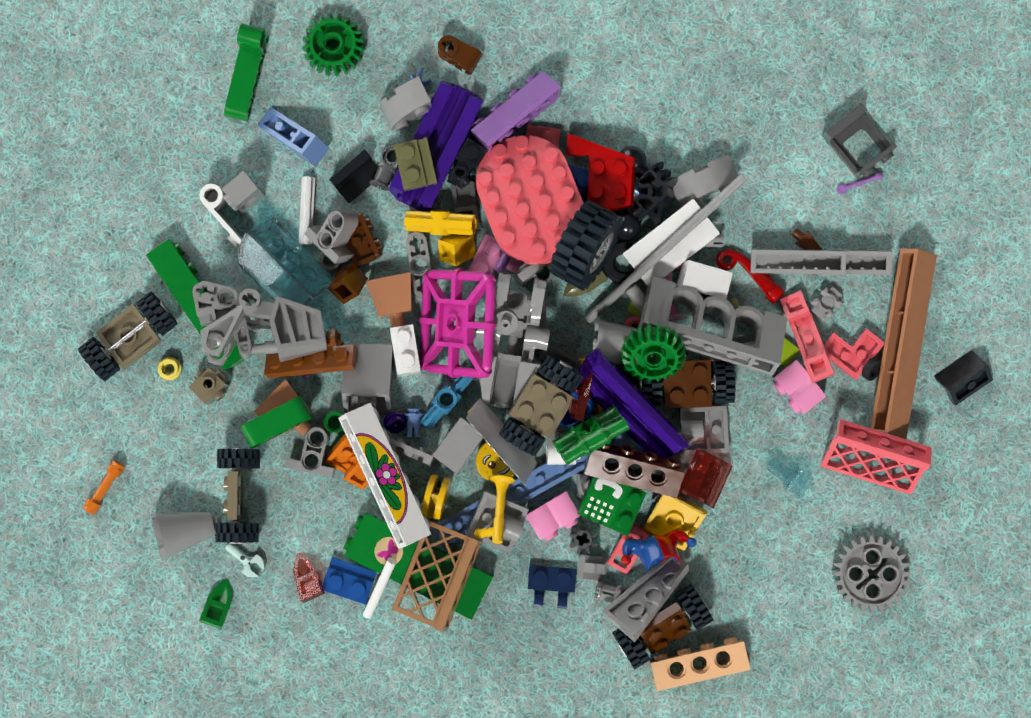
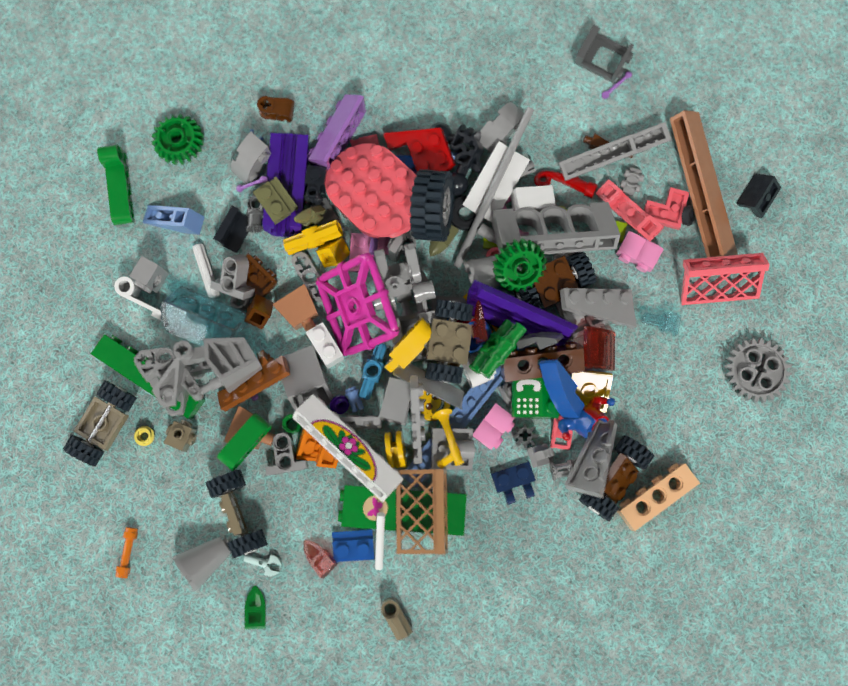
camera: 20 degrees left, 5 degrees down
(363, 678) = (396, 620): none -> dark tan piece
(381, 130) = (263, 179): none -> medium lavender hinge
(448, 199) = (310, 216): none -> olive plate
(473, 474) = (417, 405): none -> light grey wing
(496, 393) = (409, 345): none -> yellow piece
(641, 507) = (561, 389): none -> blue slope
(643, 443) = (542, 339): none -> dark grey slope
(729, 430) = (602, 304): none -> light grey wing

